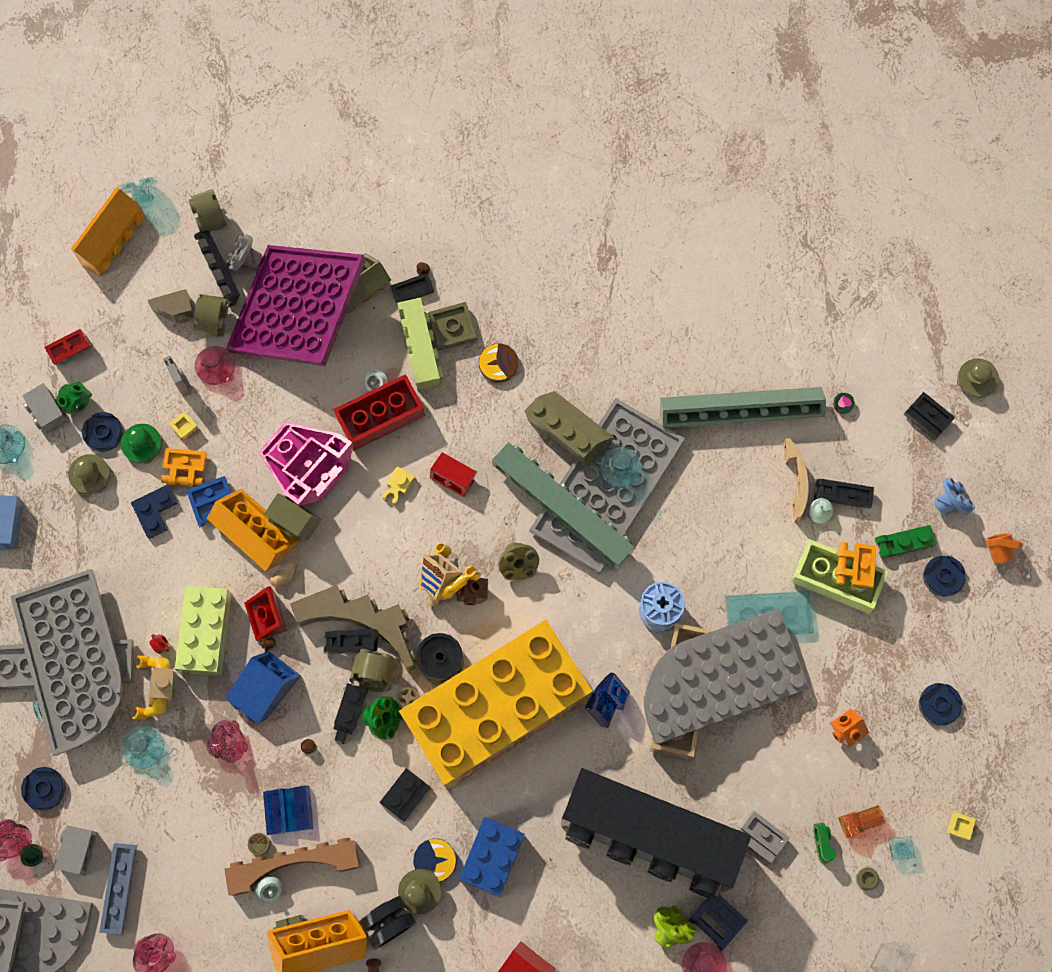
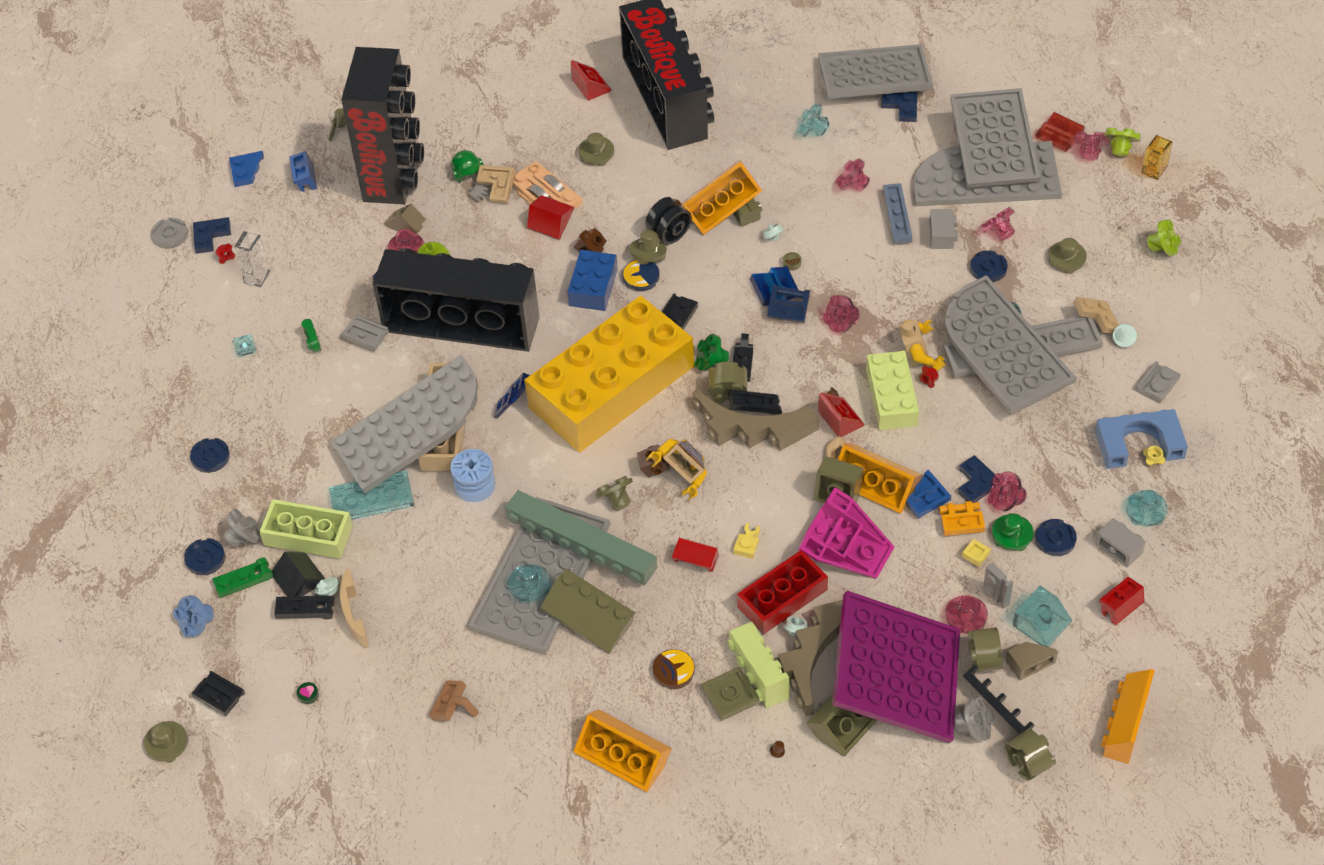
camera: 170 degrees right, 20 degrees down
(31, 855) = (977, 220): dark green tile -> none
(73, 397) = (1095, 551): green brick -> none
(89, 474) = (1052, 497): olive plate -> none
(131, 479) = (1006, 491): none -> clear pink plate
(140, 192) = (1117, 768): clear light blue plate -> none
(142, 747) = (915, 304): clear light blue plate -> none
(149, 347) = (1042, 617): none -> clear light blue slope
(243, 877) = (723, 261): medium nougat arch -> none
(262, 686) = (823, 360): blue slope -> none
(283, 767) = (787, 309): none -> dark blue plate
(308, 746) = (771, 330): reddish brown piece -> none
(344, 376) = (808, 647): none -> dark tan arch
(408, 694) = (691, 375): dark tan wheel -> none
(412, 288) = (783, 726): black tile -> none
(437, 646) = (669, 403): black wheel -> none
(484, 914) = (591, 241): none -> reddish brown brick
(559, 289) = (621, 749): none -> light orange slope
(711, 365) = (448, 700): none -> medium nougat plate
(742, 407) = (412, 662): sand green brick -> none
(848, 527) = (296, 574): none -> black slope
(849, 728) = (292, 415): orange brick -> none
(857, 822) = (285, 354): clear orange piece -> none
(863, 566) = (283, 525): light orange plate -> none
(867, 879) = (273, 324): olive tile -> none
(904, 590) = (241, 529): none -> light grey plate
(961, 826) = (192, 368): light yellow plate -> none
(1002, 547) = (148, 584): orange piece -> none

